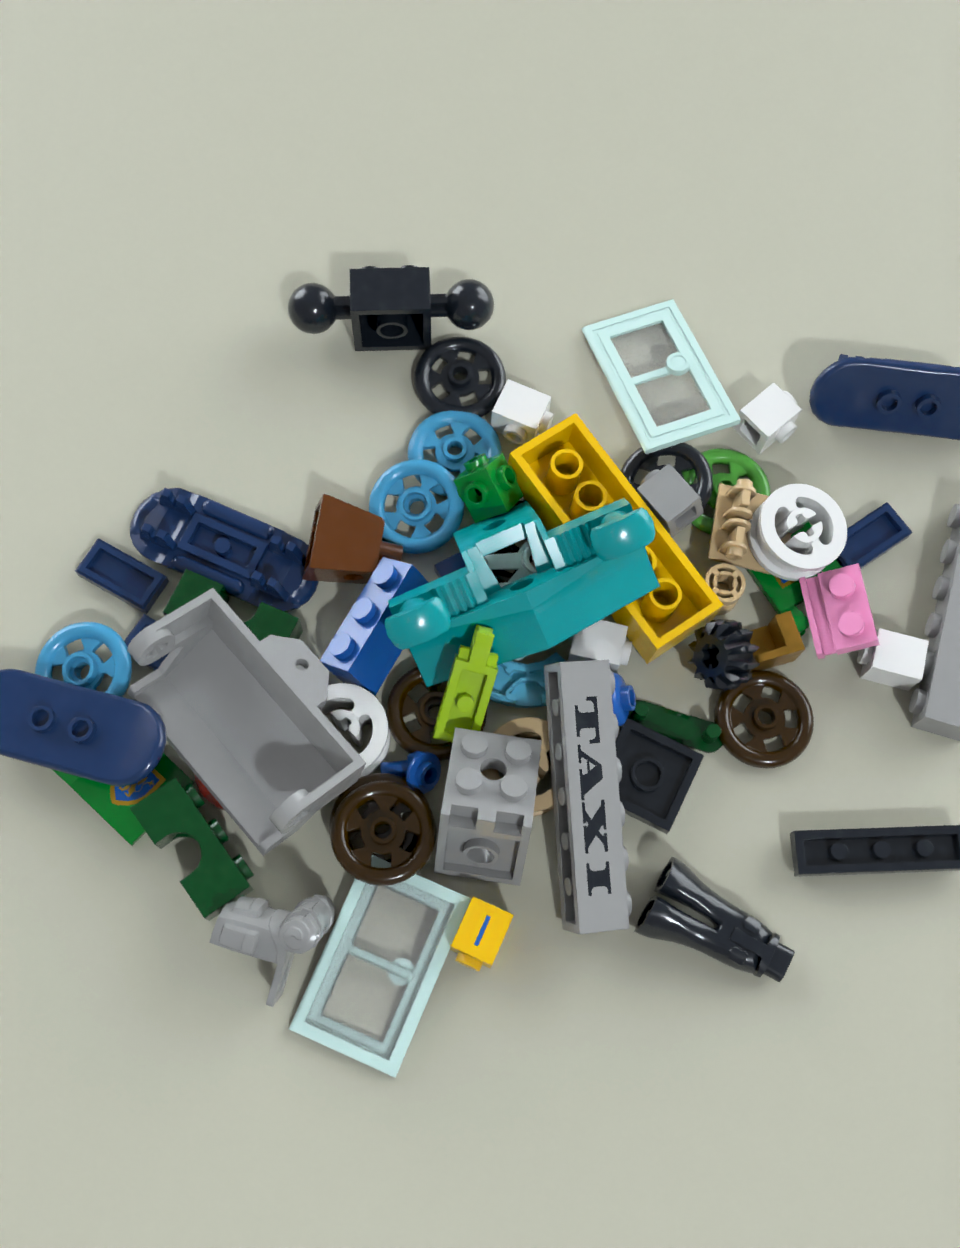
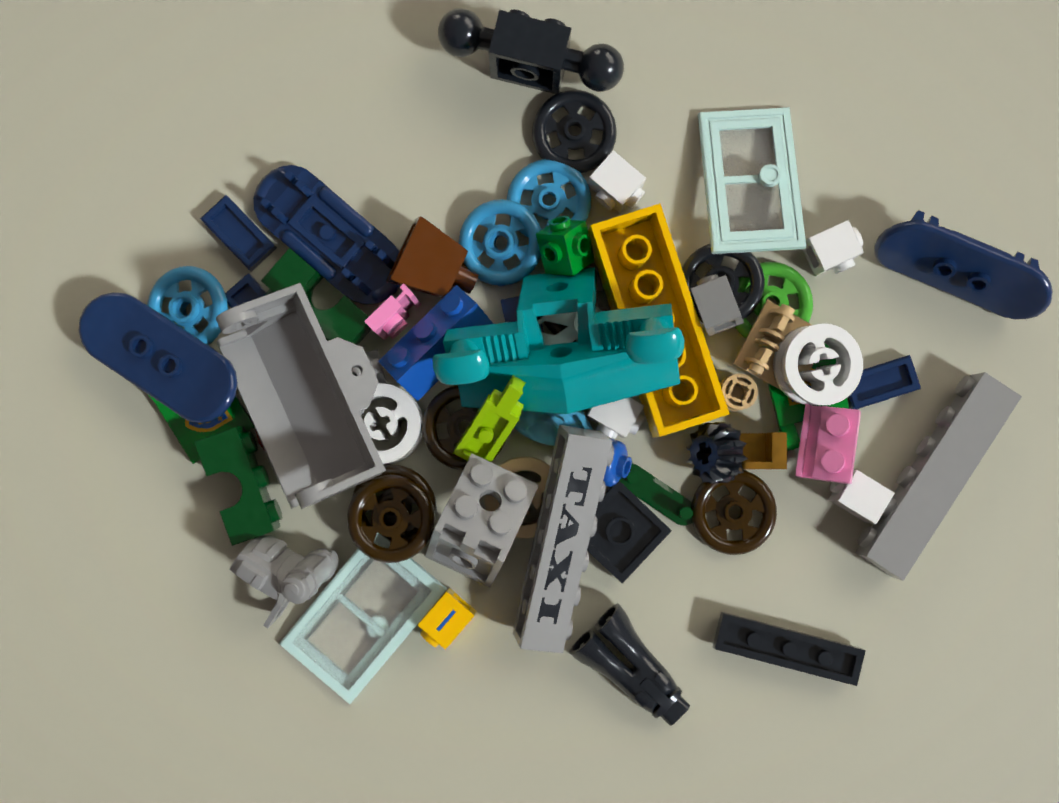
camera: 20 degrees right, 15 degrees up
(318, 609) = (391, 315): none -> bright pink plate
(420, 769) = (437, 473): blue plate -> none

